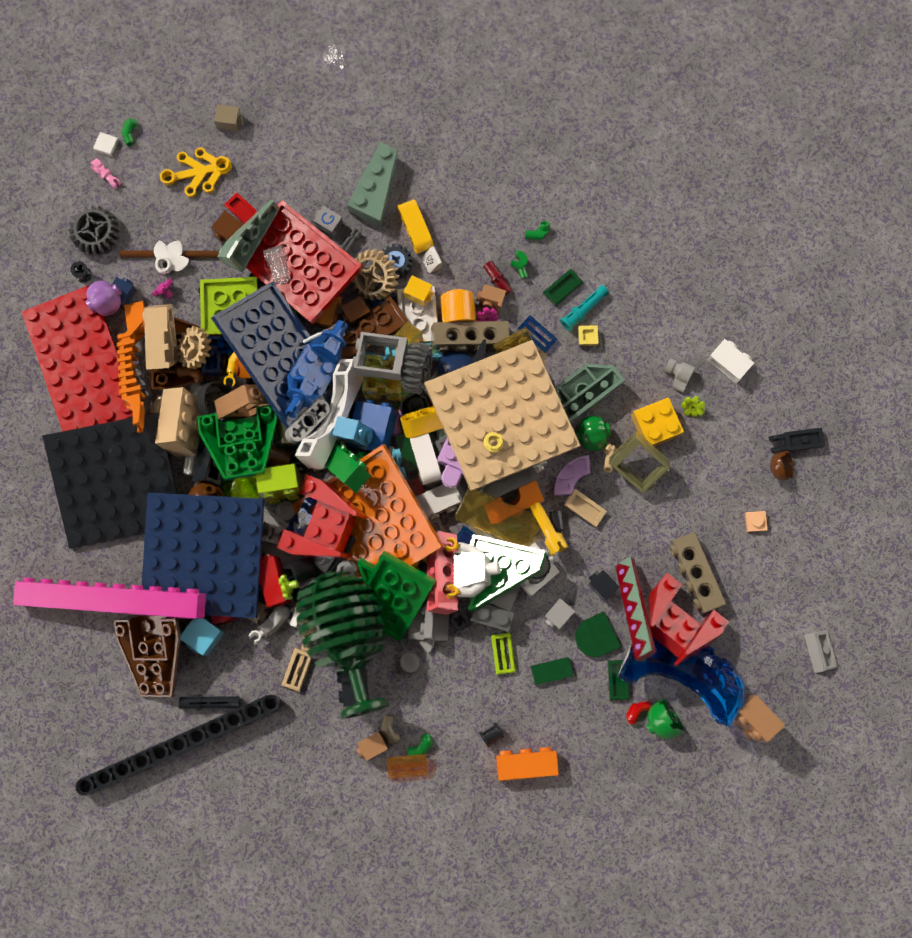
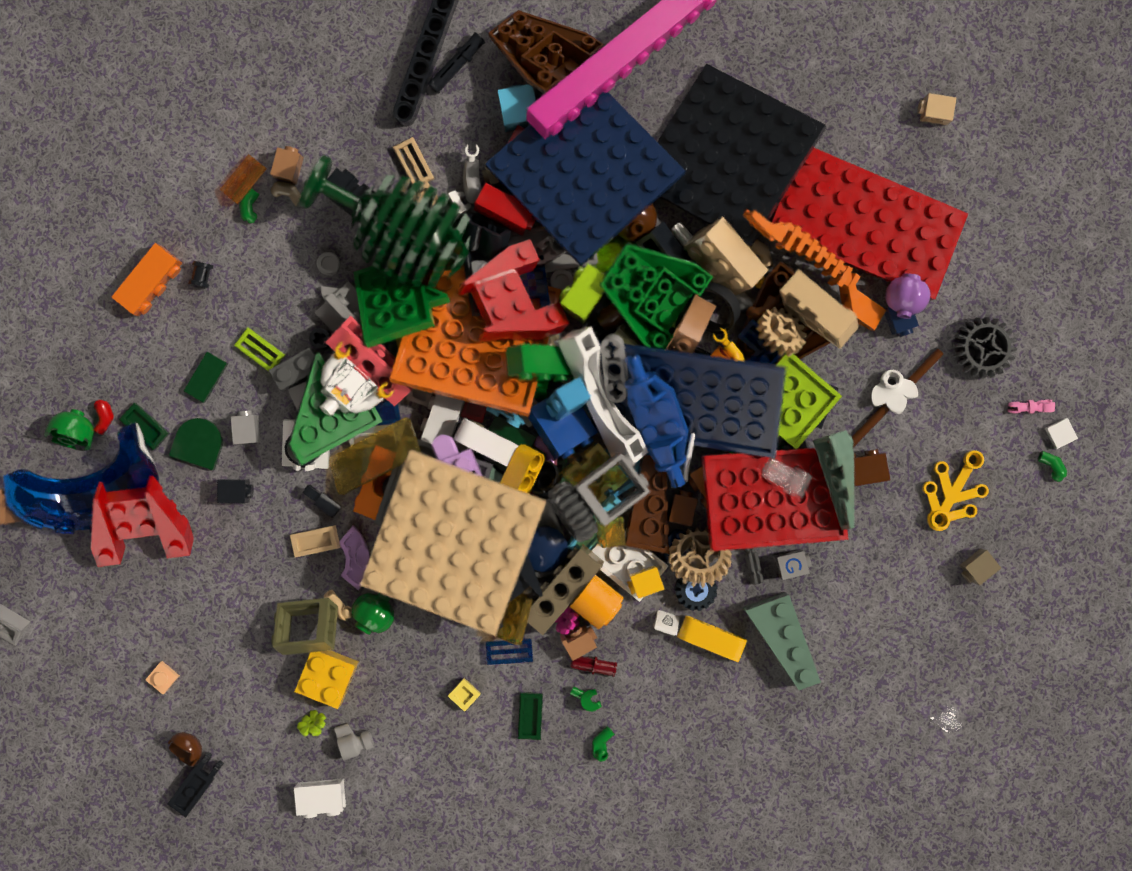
camera: 135 degrees right, 10 degrees up
(81, 266) = (953, 306): black bush -> none
(163, 288) = (869, 359): dark pink plant -> none
(240, 208) = (876, 498): red tile -> none
(287, 586) = (486, 216): lime plant -> none
(348, 567) = (454, 283): light grey tile -> none
(493, 436) = (425, 513): light yellow plate -> none
(554, 541) = (307, 485): yellow piece -> none
(578, 313) = (492, 710): teal pin -> none
(587, 388) = (414, 645): sand green wedge -> none
(635, 609) = (178, 494): tile -> none
(690, 543) = (131, 574): dark tan brick -> none

